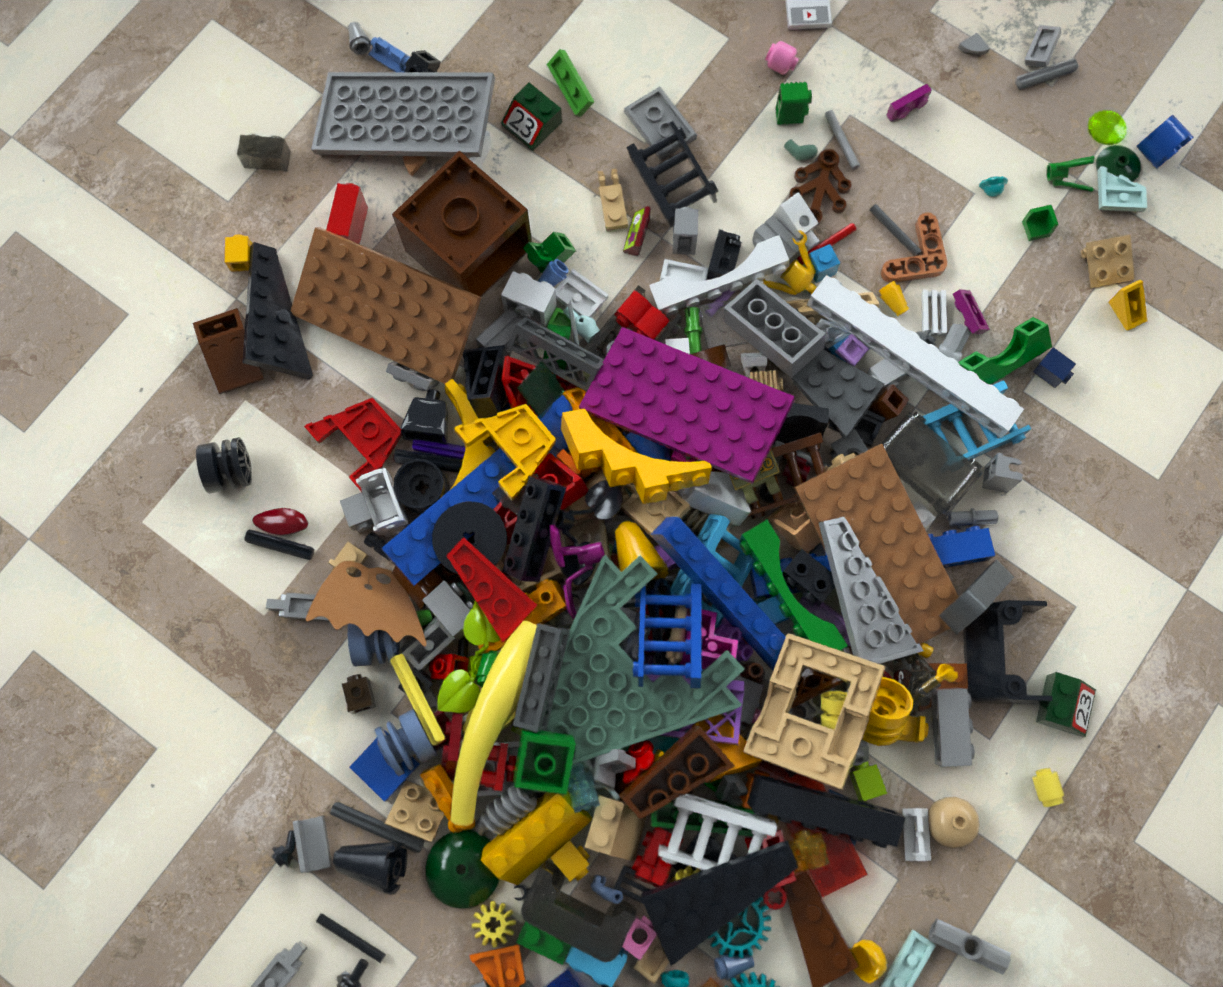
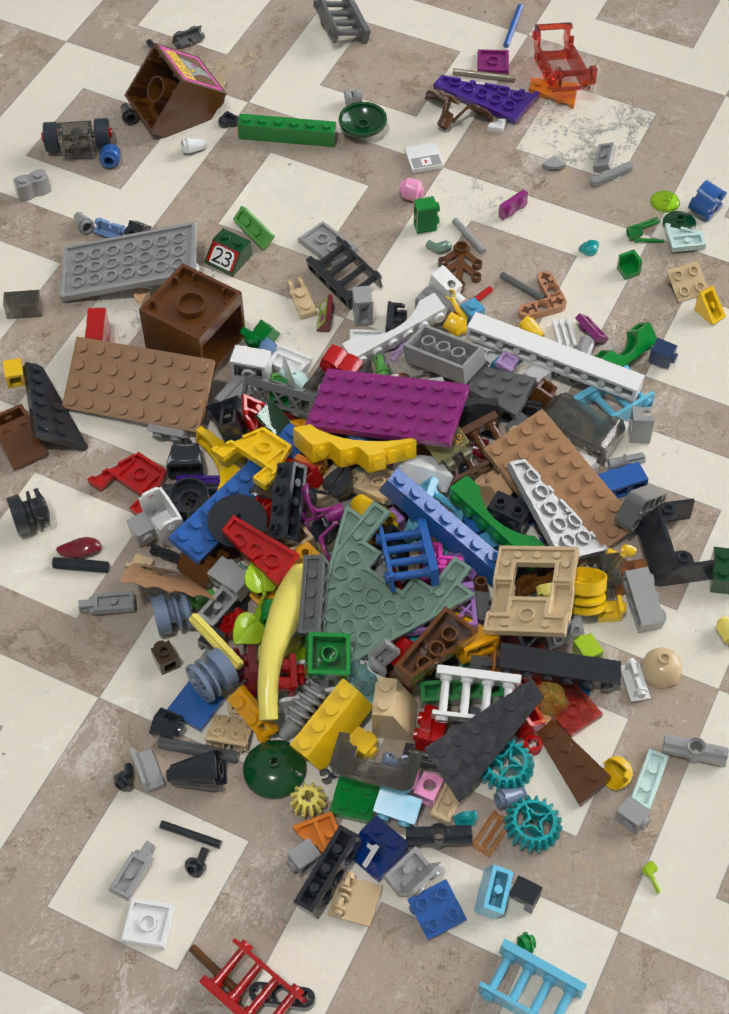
camera: 10 degrees left, 20 degrees down
(345, 790) = (167, 723): none -> black brick

